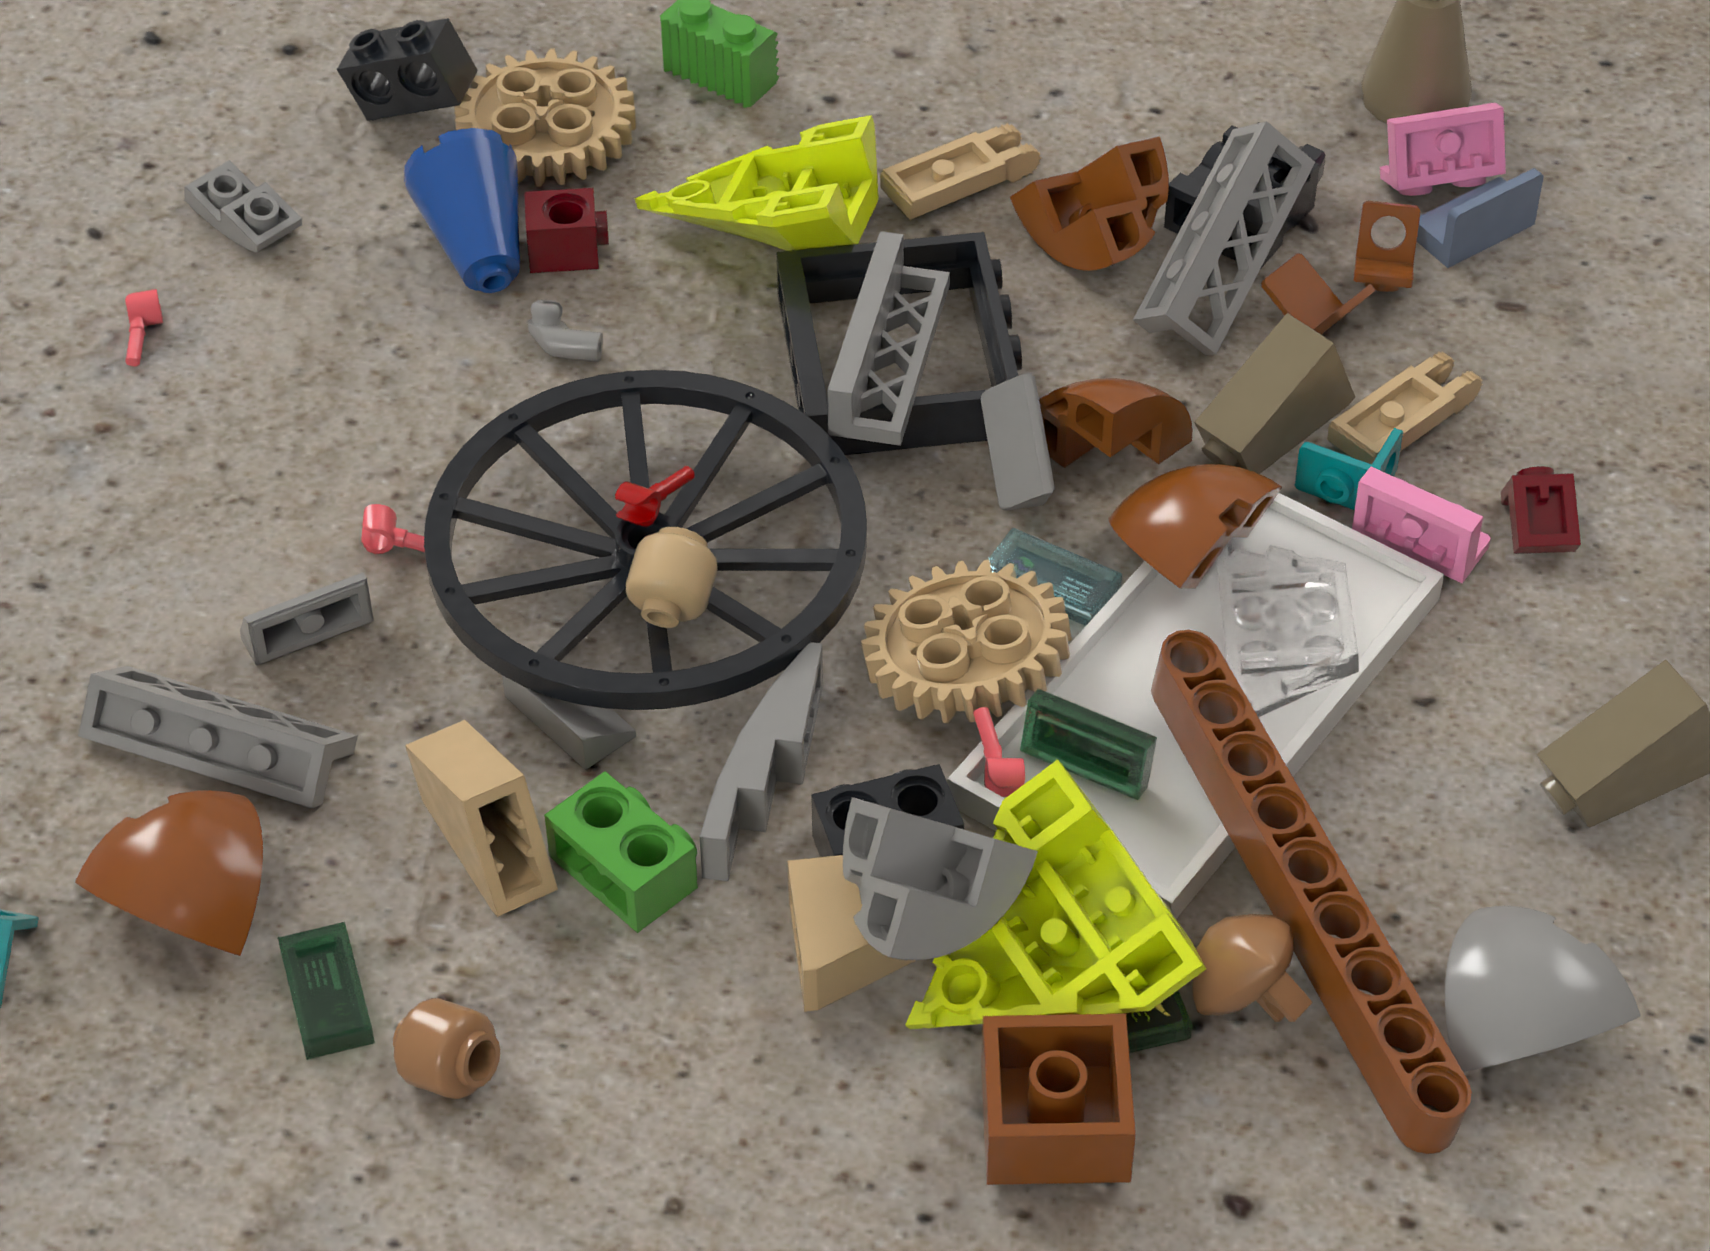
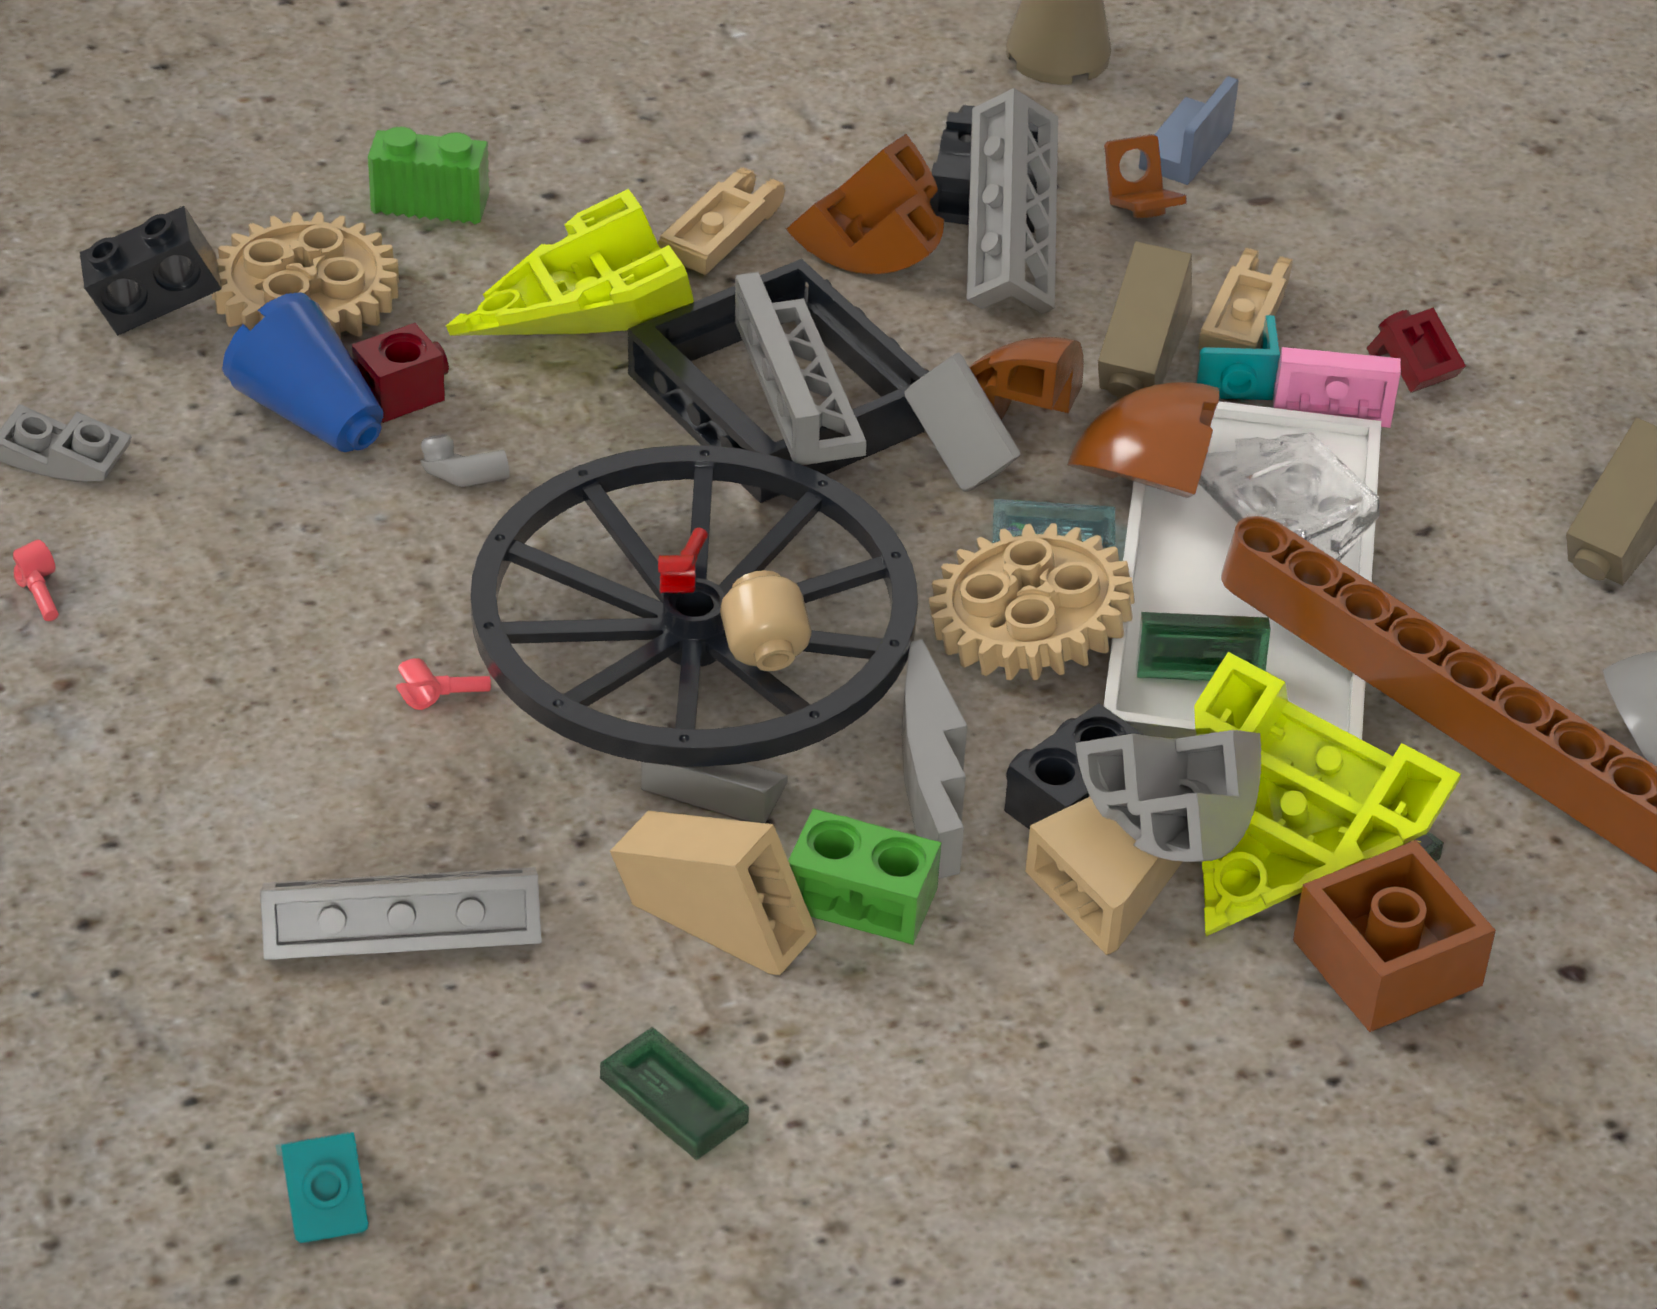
camera: 30 degrees left, 5 degrees down
(185, 867) = (480, 1025): dark orange brick -> none
(307, 619) = (413, 784): light grey slope -> none
(446, 1048) = (834, 1095): medium nougat head -> none
(1000, 773) = (1138, 697): coral hand -> none
(1248, 963) = (1484, 777): medium nougat piece -> none
(1306, 296) = (1103, 241): dark orange bracket -> none
(1445, 148) = (1136, 83): bright pink bracket -> none

